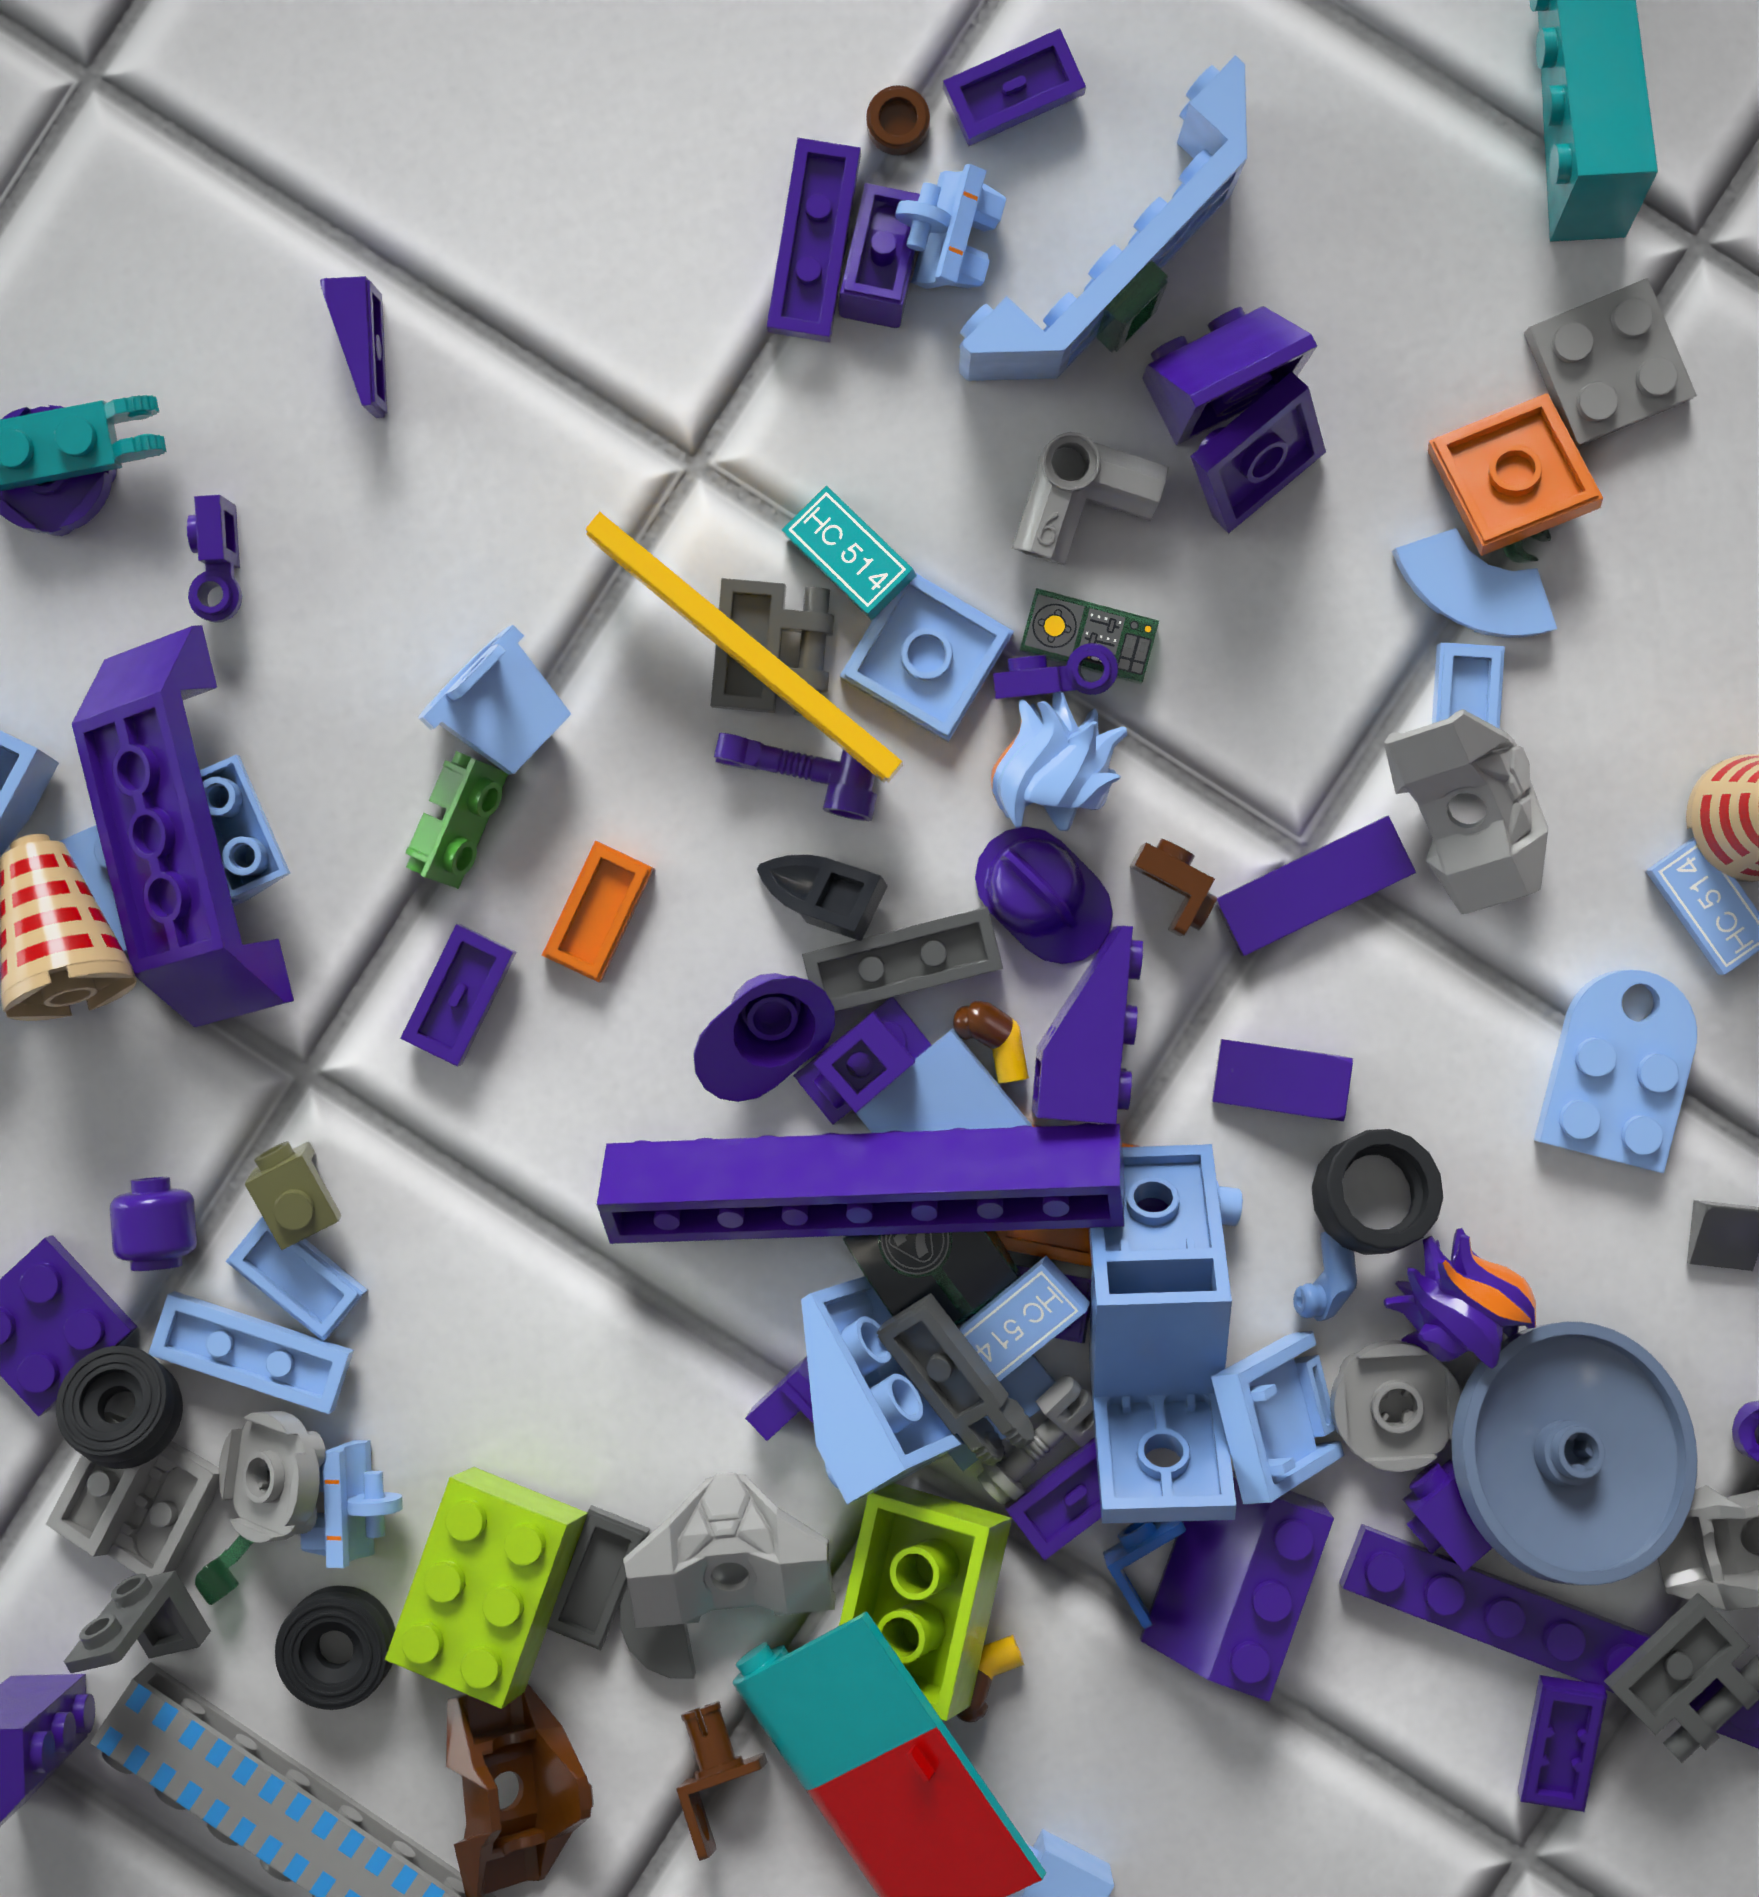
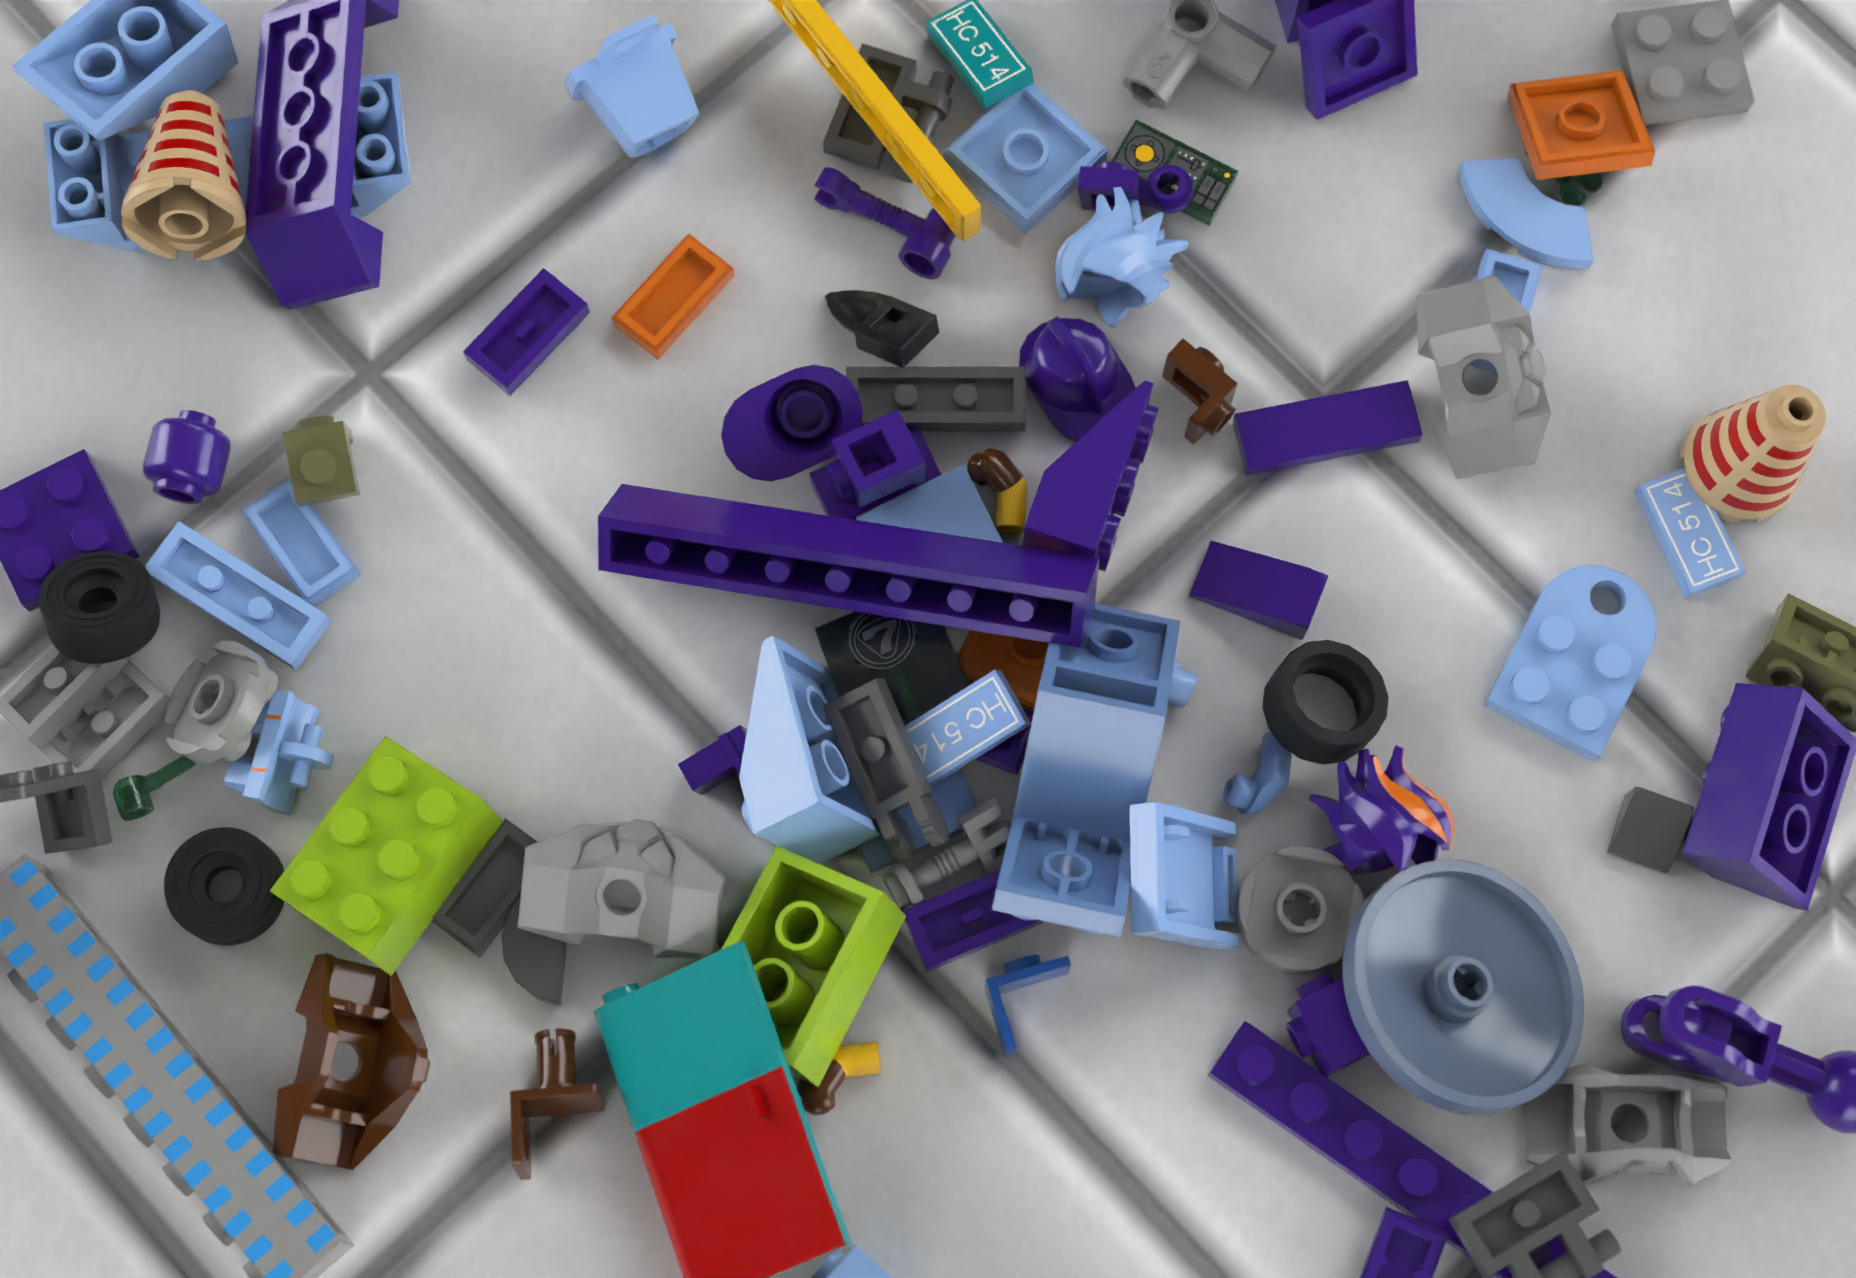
camera: 10 degrees right, 15 degrees down
(448, 847) = (583, 178): bright green hinge -> none
(1239, 1591) = (1108, 1035): dark purple slope -> none

